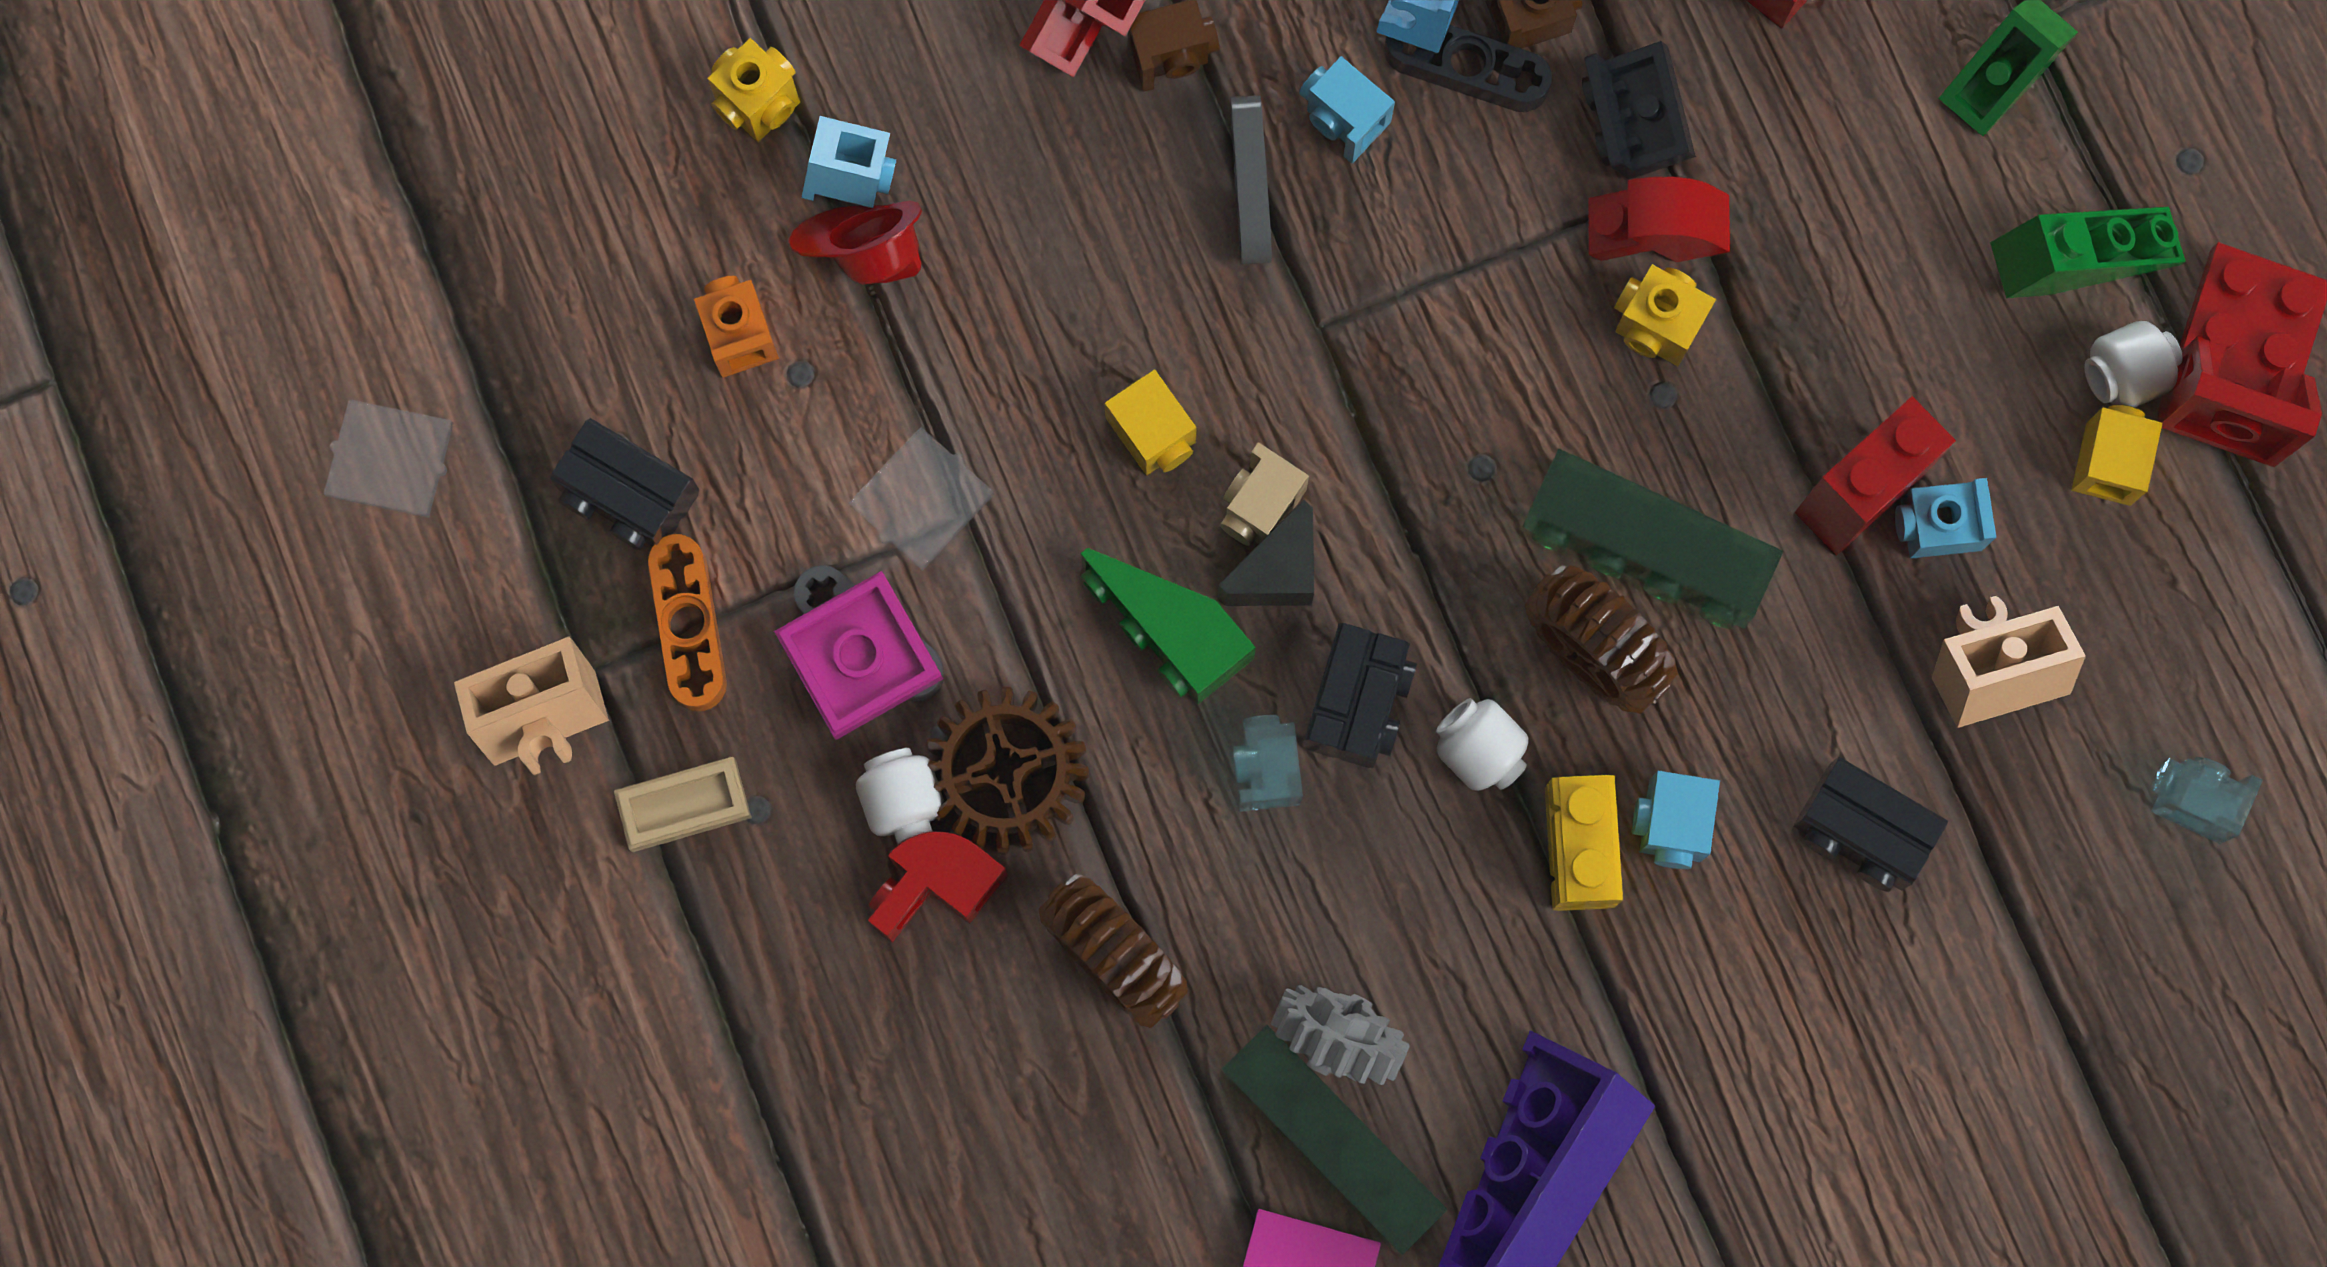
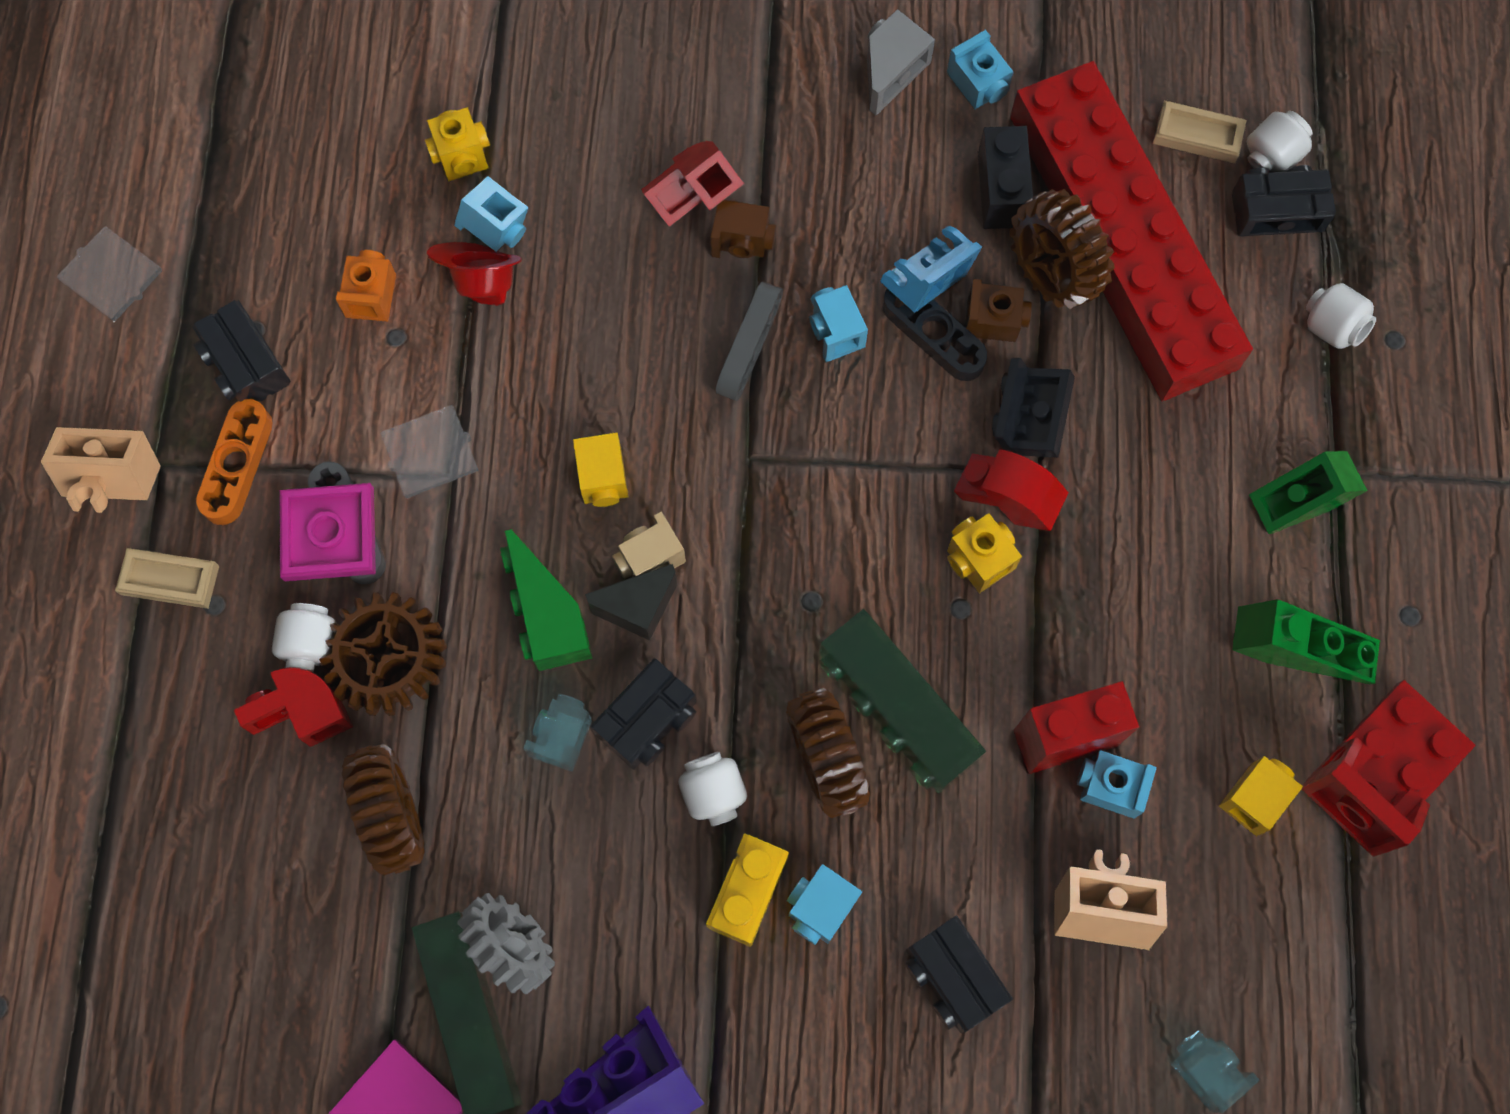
camera: 25 degrees right, 5 degrees down
(2133, 364) = (1302, 737): white head -> none

